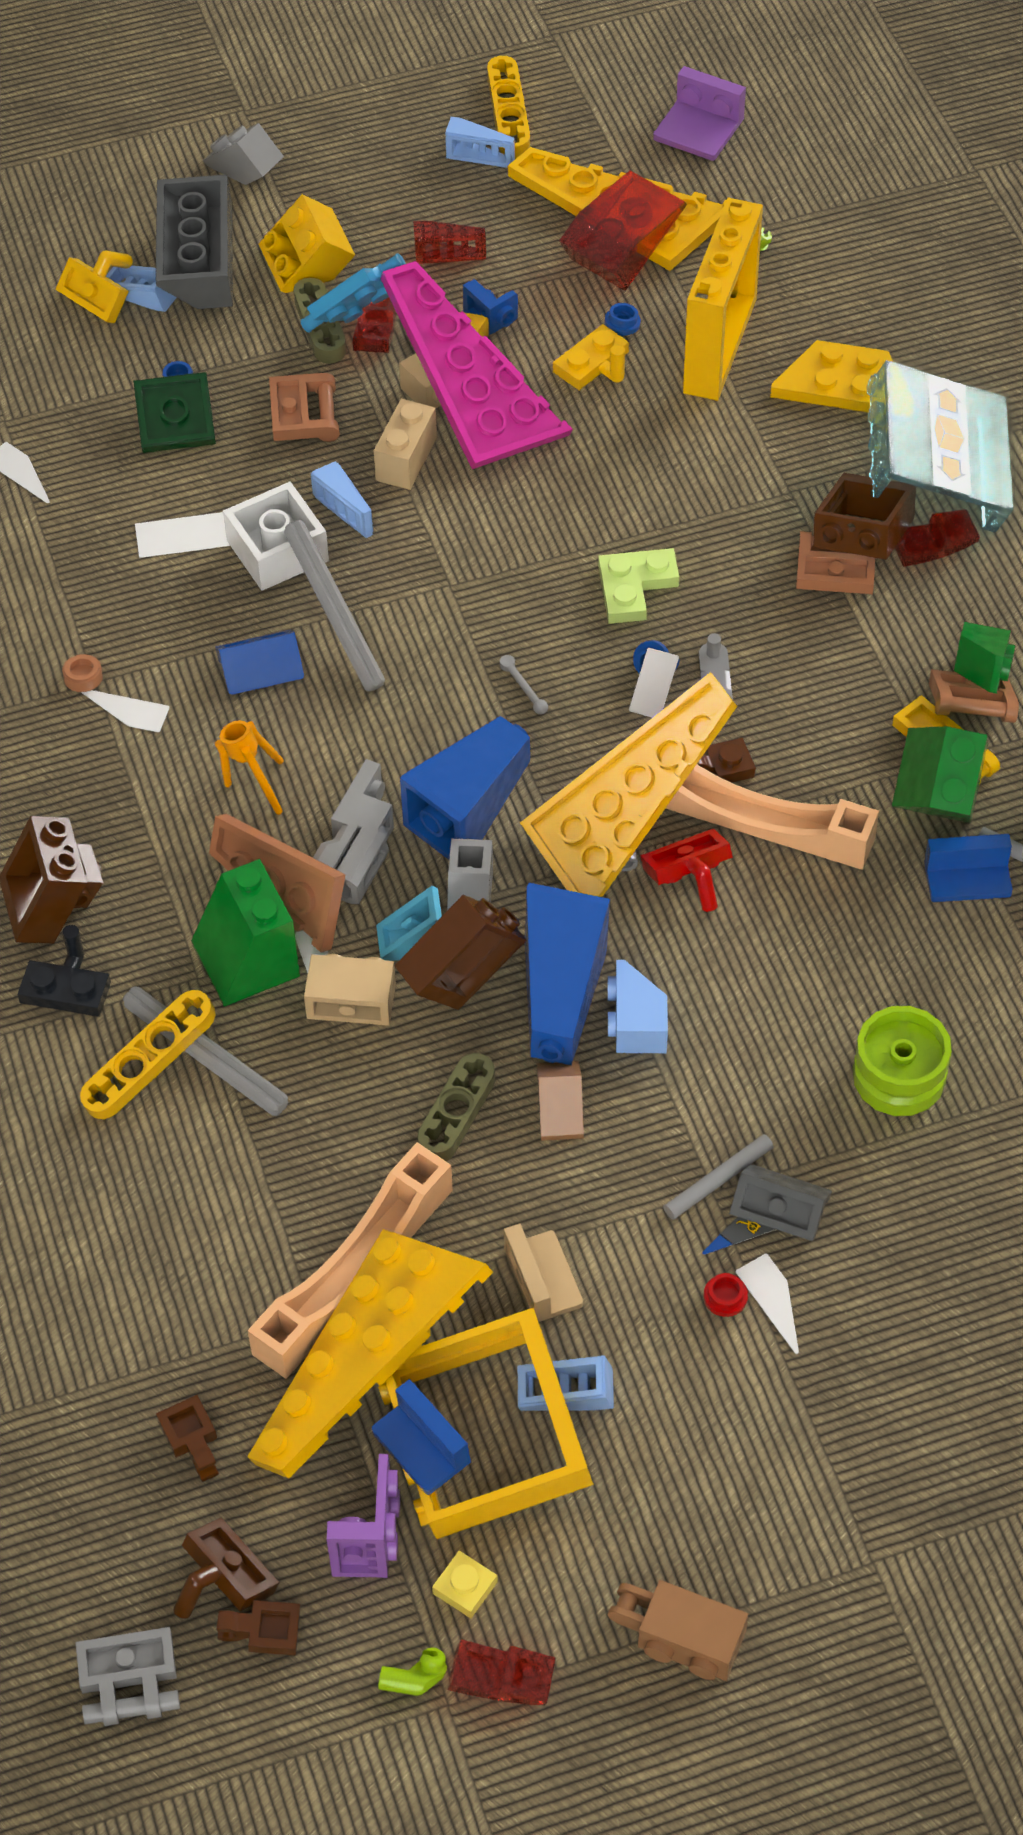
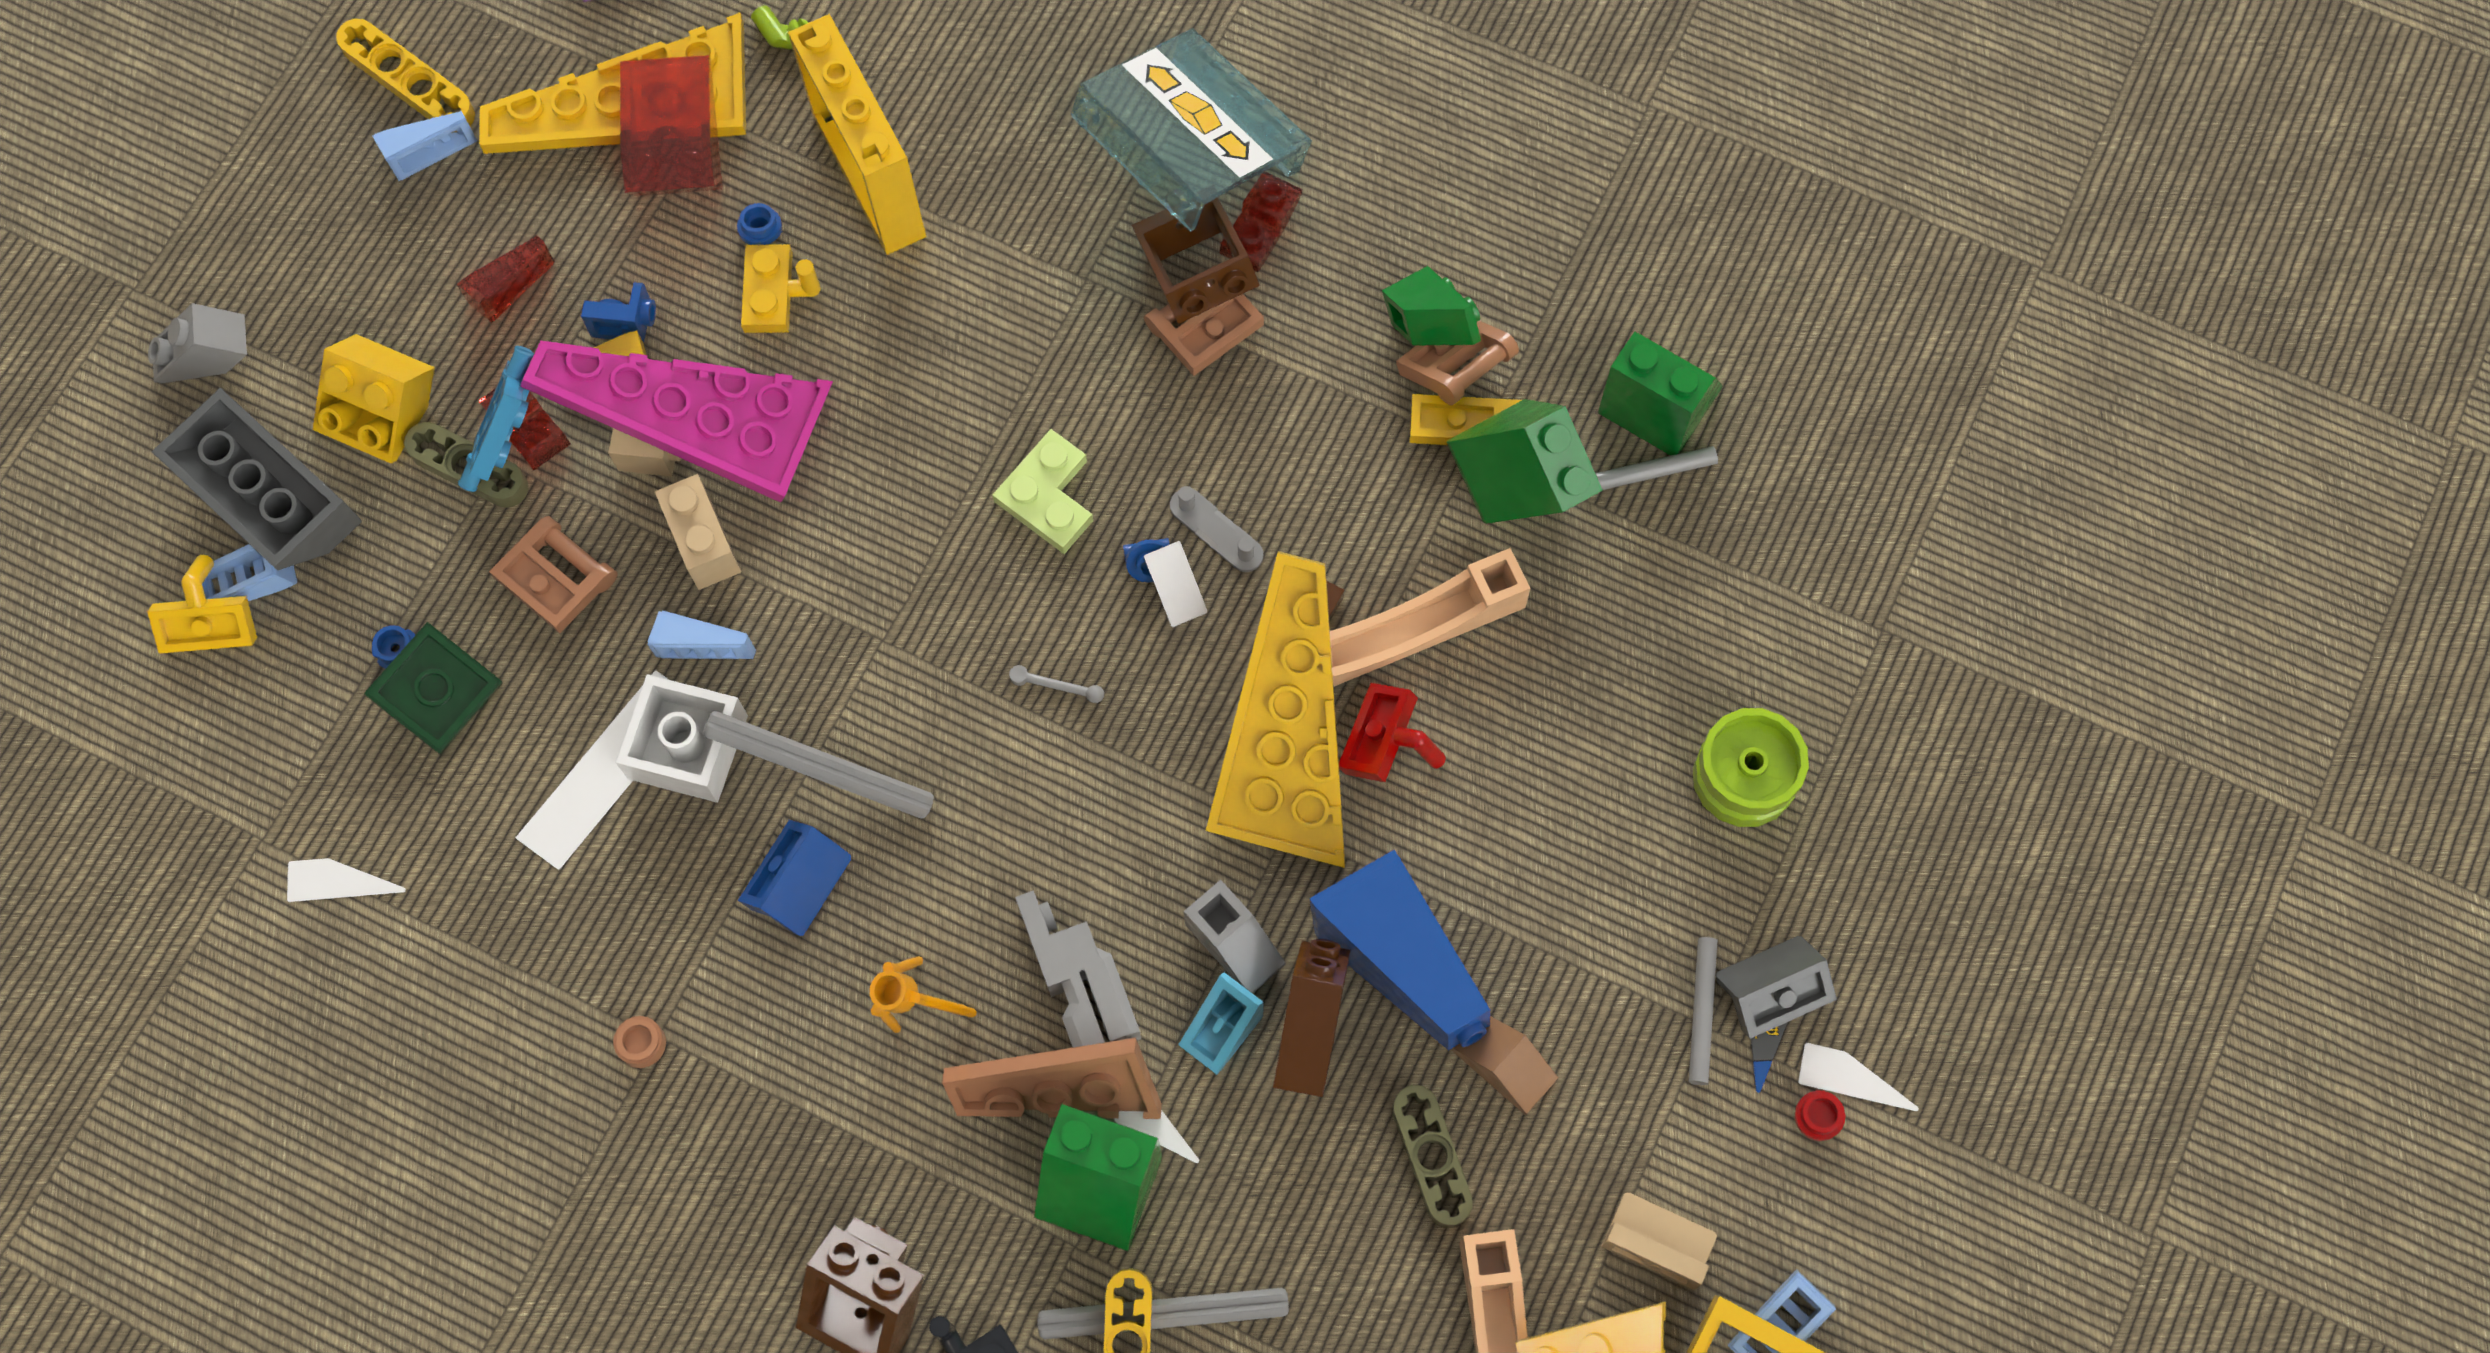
camera: 45 degrees left, 15 degrees up
(131, 711) = (726, 1036): white sticker -> none
(350, 989) = (1230, 1132): tan brick -> none
(464, 785) = (1130, 847): blue slope -> none
(640, 1012) = (1491, 919): light blue slope -> none
(831, 376) = (1014, 122): yellow wing -> none
(968, 867) = (1611, 531): blue panel -> none

